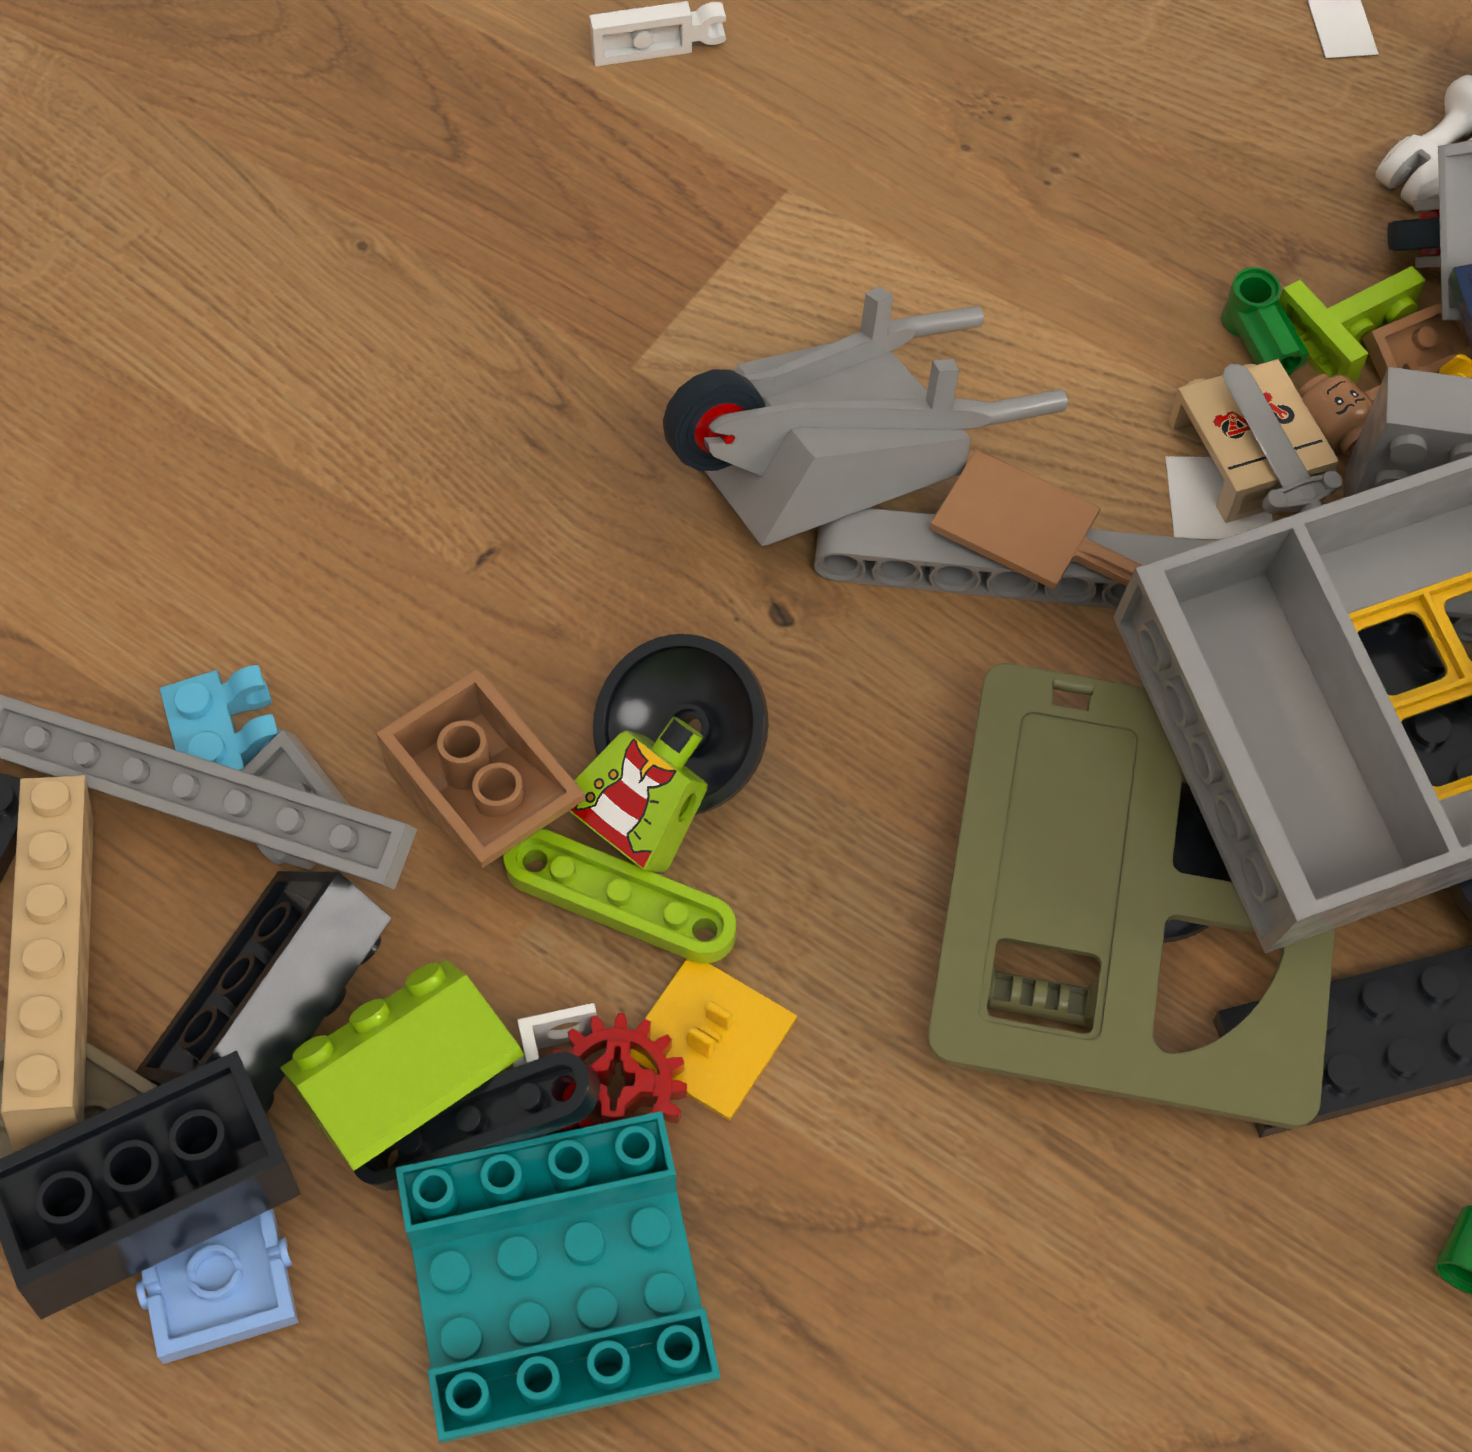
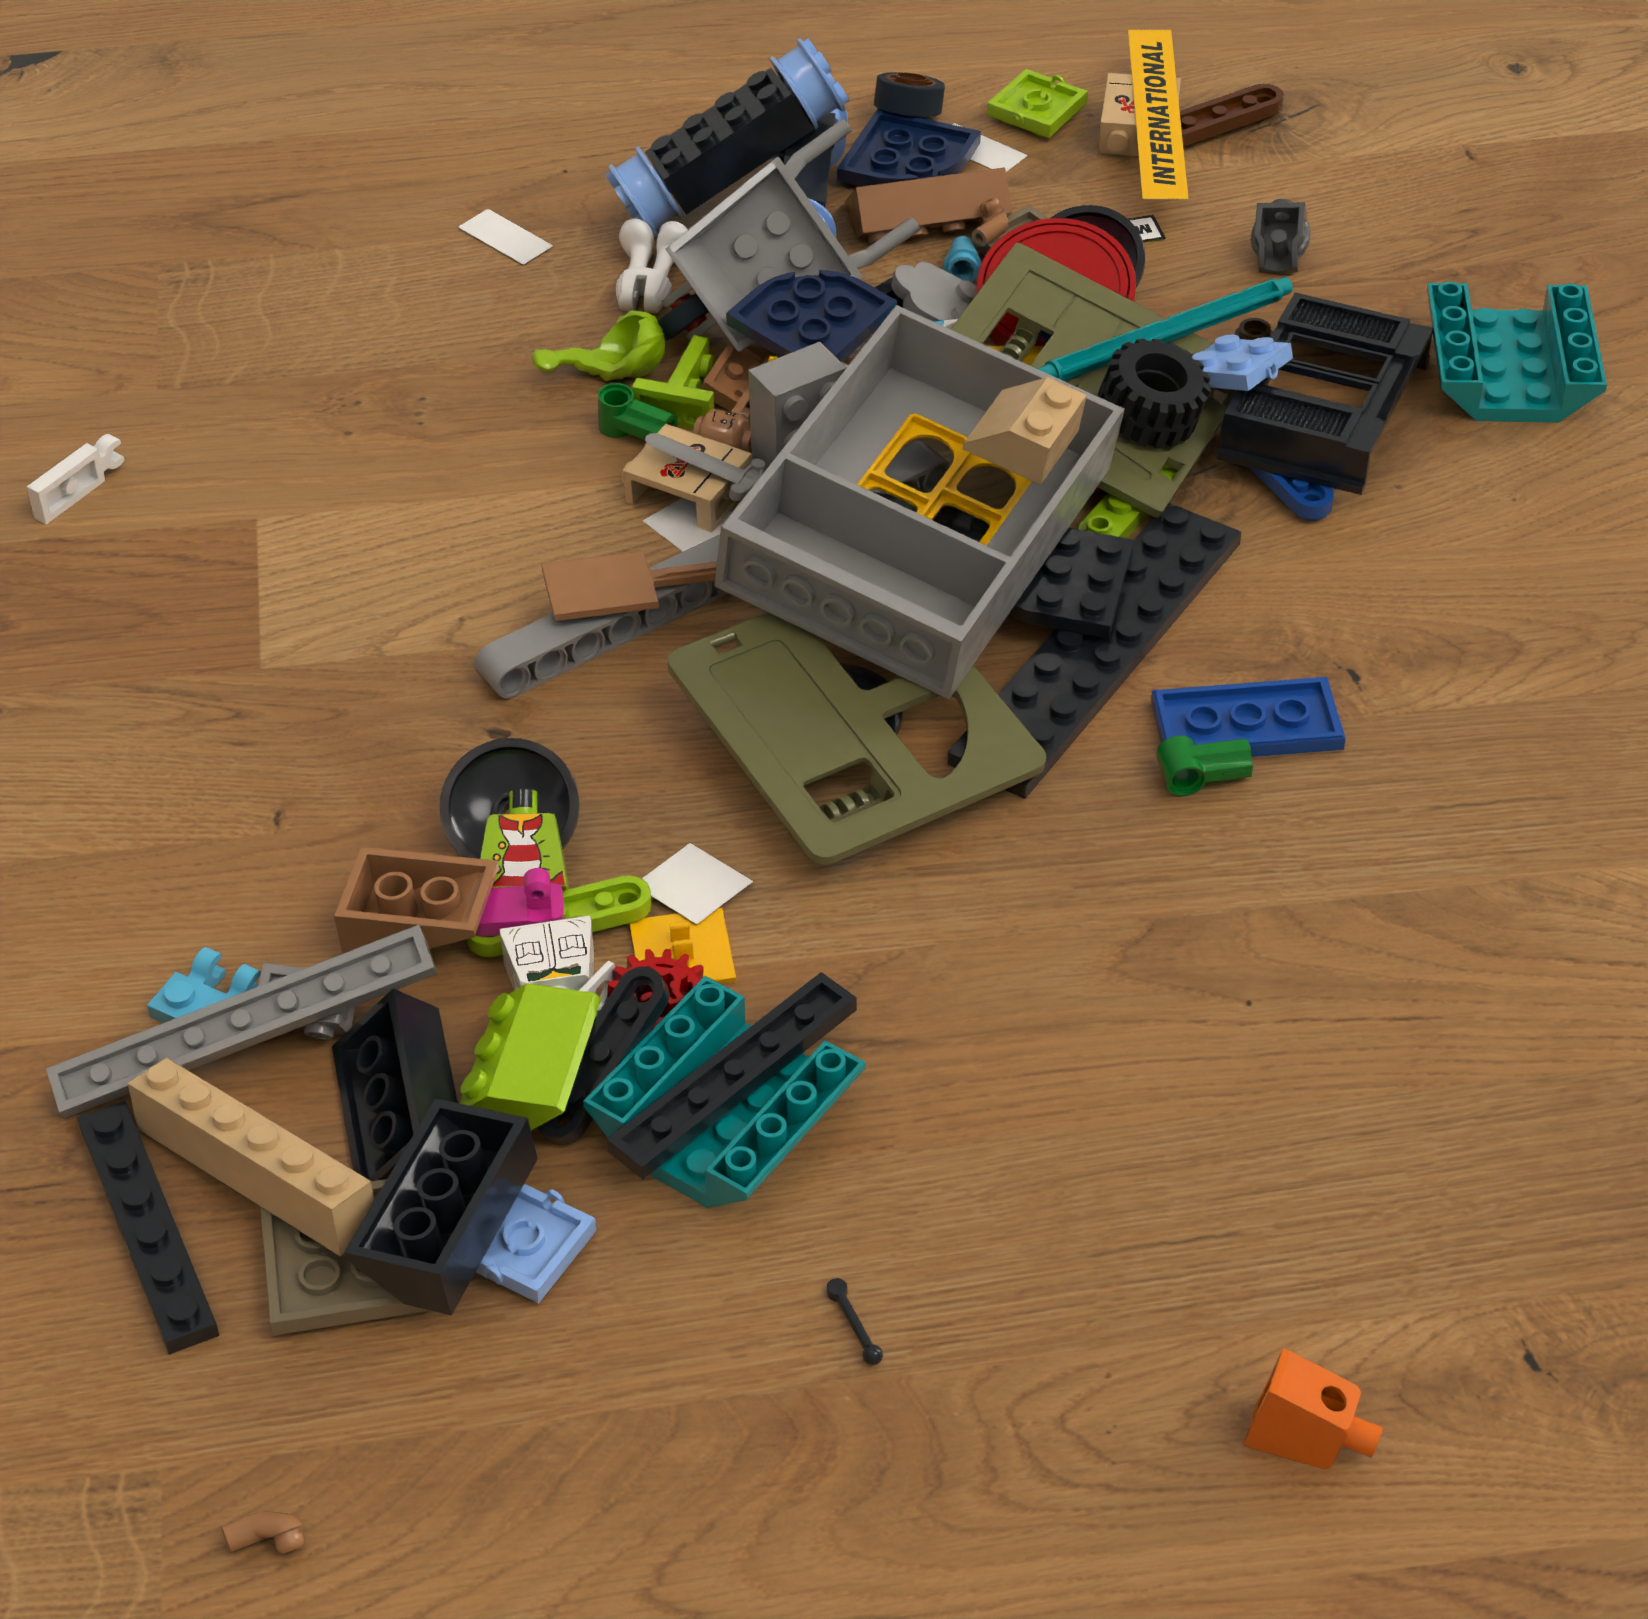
camera: 40 degrees left, 15 degrees down
(550, 954) = (549, 953): none -> white torso
(577, 865) = (522, 905): none -> dark pink piece
(579, 1263) = (731, 1075): none -> black plate
(797, 960) = (694, 883): none -> white sticker
(835, 423) = (443, 613): light grey piece -> none
(1328, 238) = (627, 350): none -> lime hair

